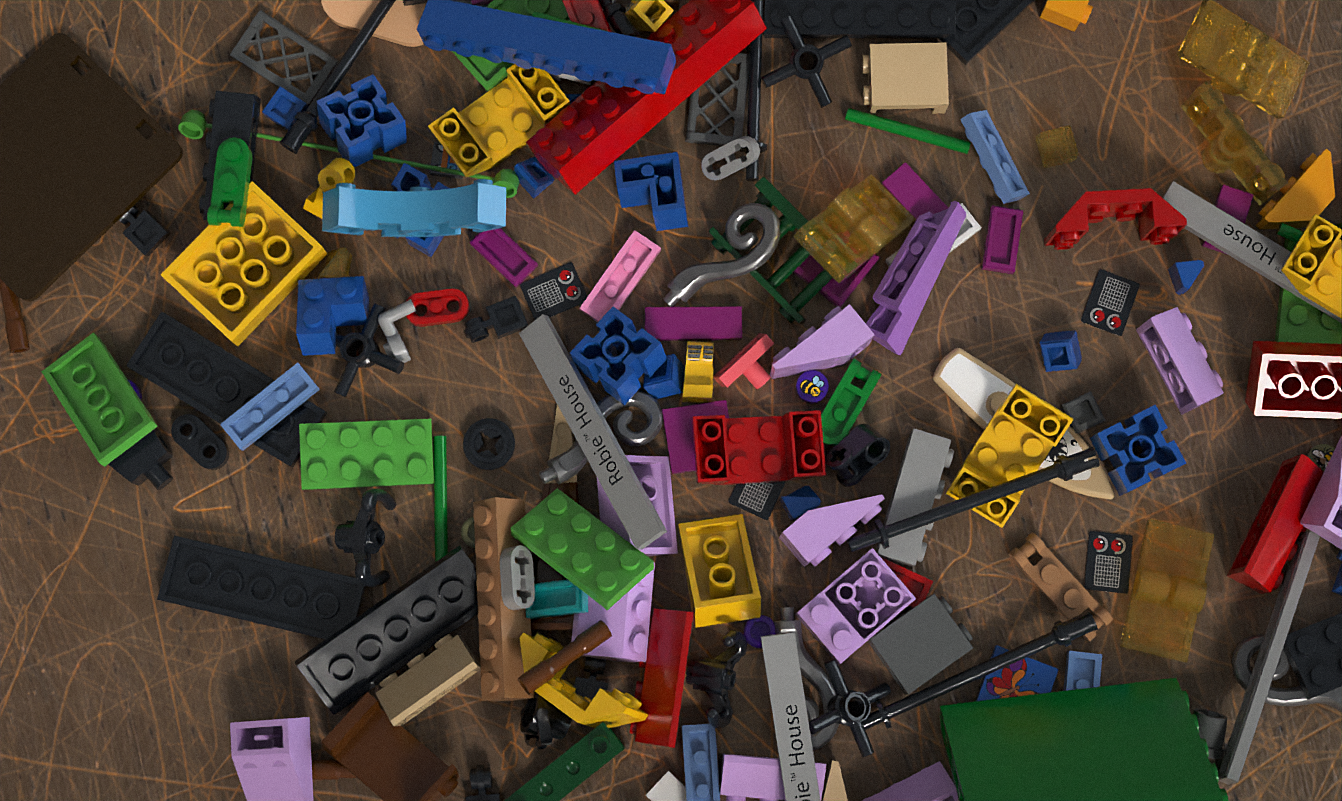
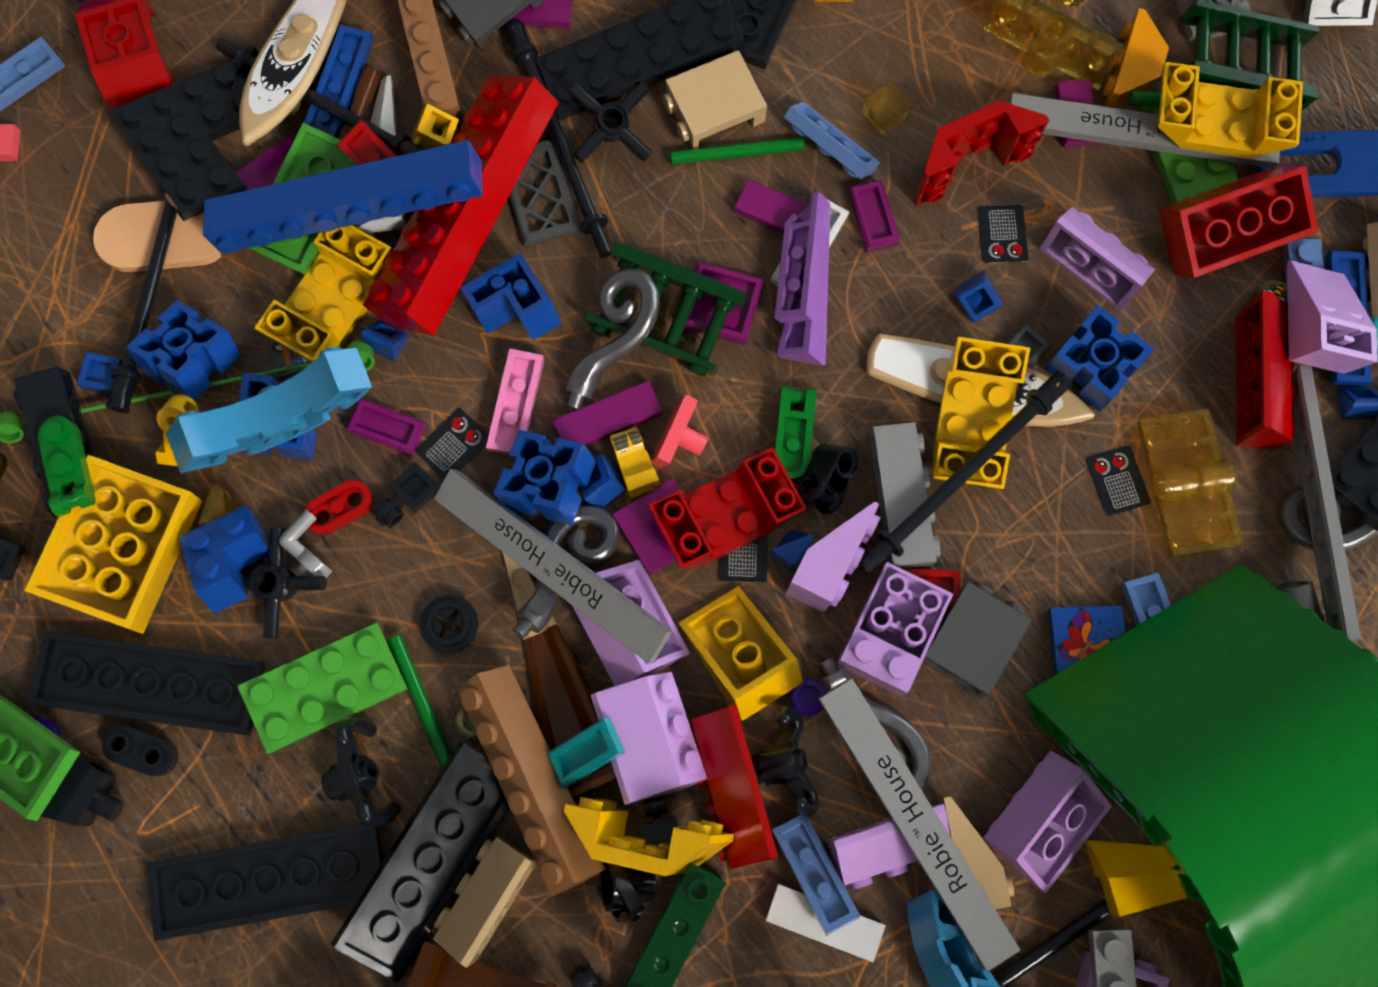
camera: 25 degrees left, 5 degrees down
(270, 406) = (198, 681): medium blue plate -> none
(284, 32) = (40, 317): dark grey window -> none
(517, 577) = (534, 748): light grey beam -> none
(546, 669) = (608, 831): reddish brown piece -> none
(582, 548) = (591, 688): bright green plate -> none
(733, 164) = (569, 236): light grey beam -> none
(812, 386) = (752, 430): tile -> none
(830, 346) = (752, 383): lavender slope -> none
(854, 228) = (727, 256): clear yellow plate -> none
(859, 708) = (936, 735): black bar -> none
(1058, 583) = (1085, 524): medium nougat plate -> none
(1060, 634) = (1110, 568): black bar -> none
(1184, 274) = (1062, 177): blue slope -> none

